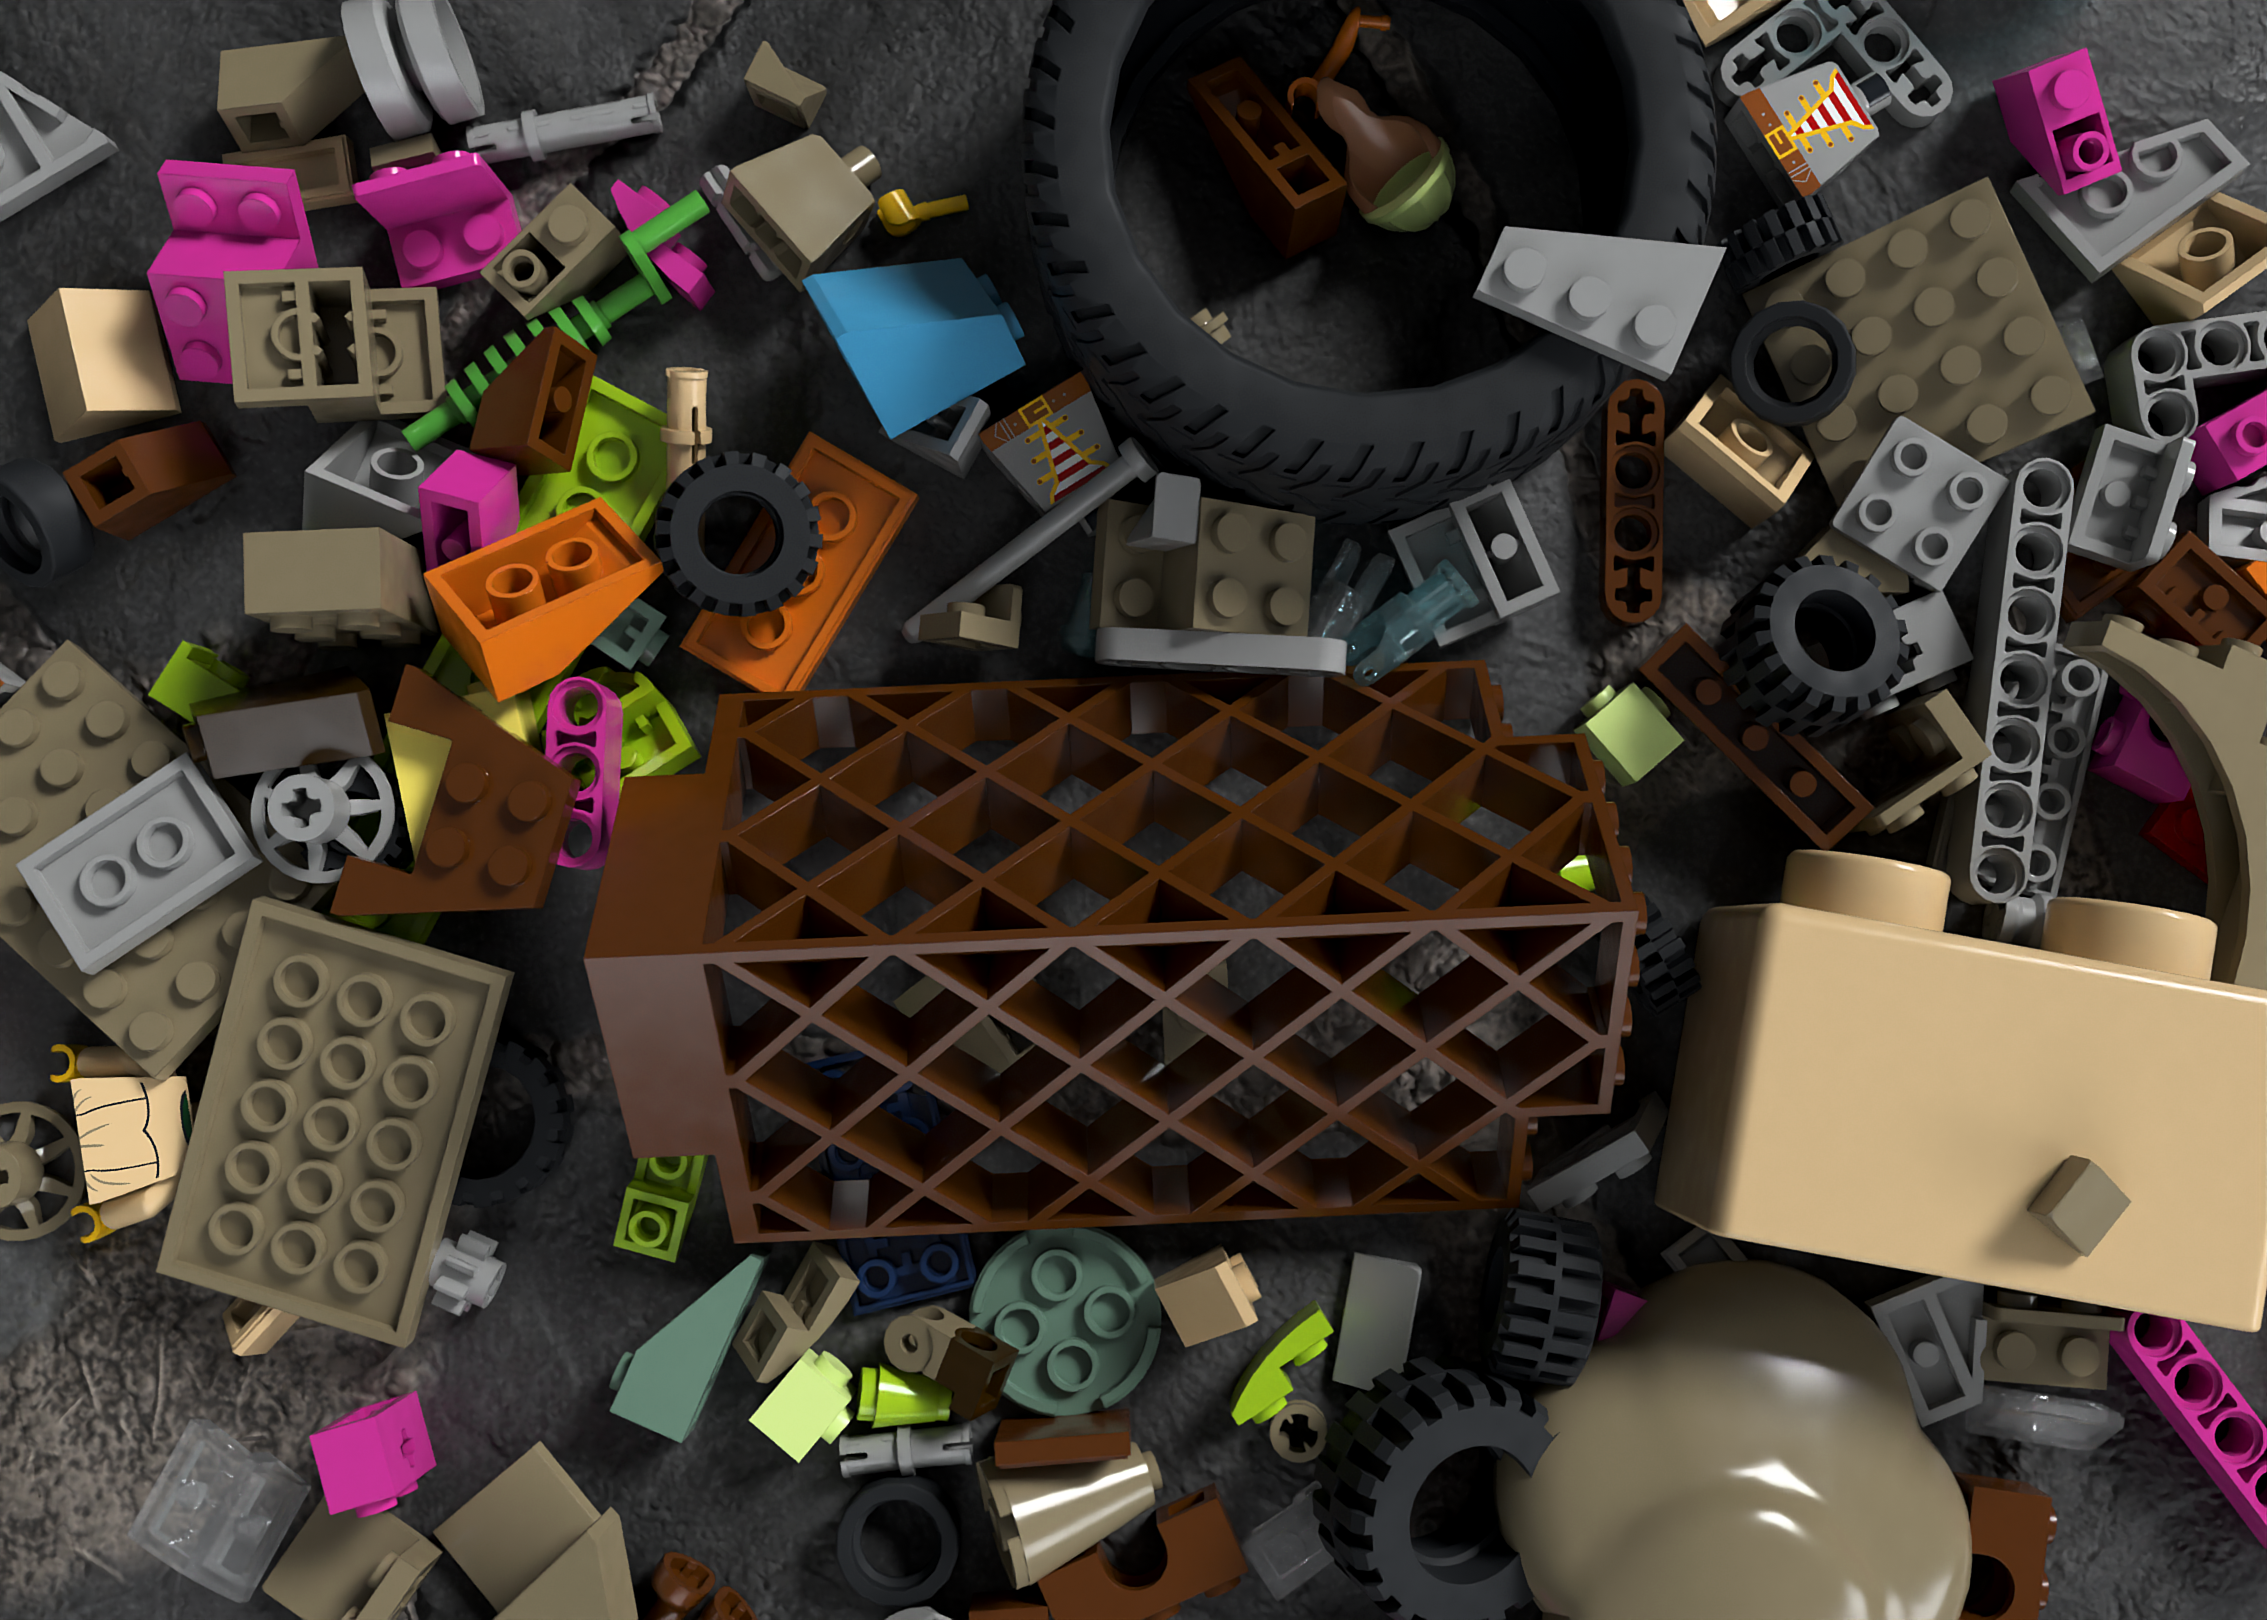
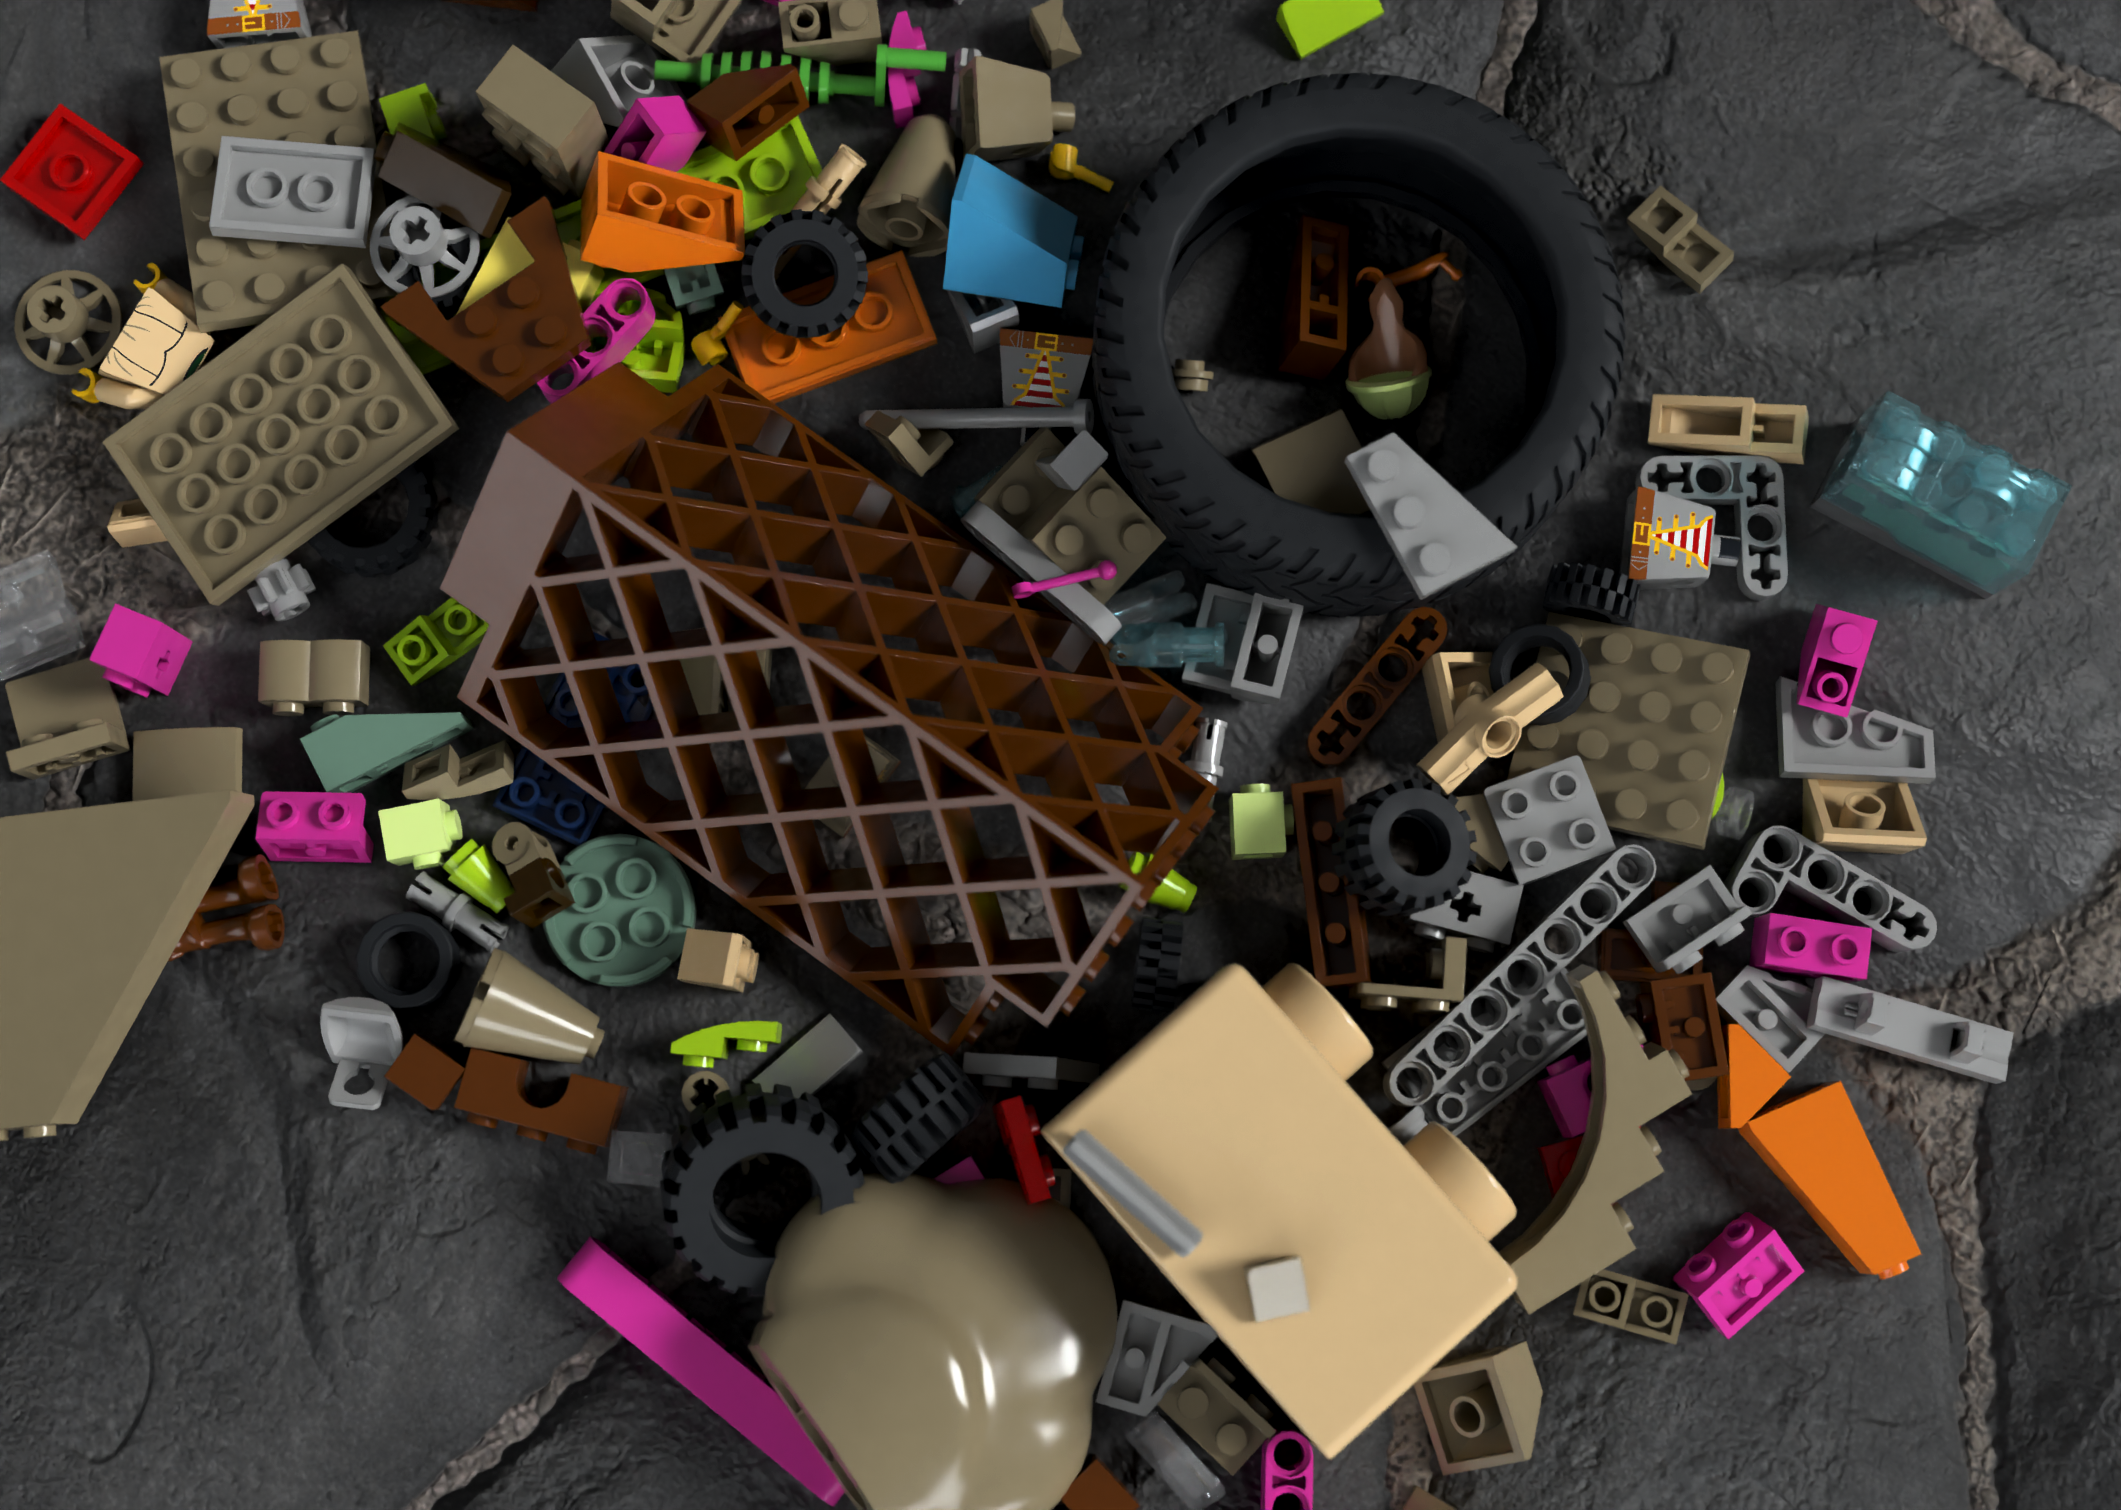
camera: 35 degrees right, 5 degrees down
(567, 1331) = (314, 675): none -> dark tan brick
(692, 681) = (708, 344): none -> yellow hand
(694, 1484) = (313, 827): none -> dark pink bracket
(775, 360) = (913, 190): none -> dark tan cone
(1063, 1439) = (557, 974): reddish brown tile -> none
(1290, 599) = (1105, 570): none -> dark pink hinge
(1405, 328) = (1311, 467): none -> dark tan slope
(1520, 701) = (1207, 752): none -> light grey pin
(1647, 1230) = (1017, 1130): none -> red plate
(1801, 456) = (1489, 726): none -> tan piece
(1862, 1227) = (1133, 1193): none -> light grey axle

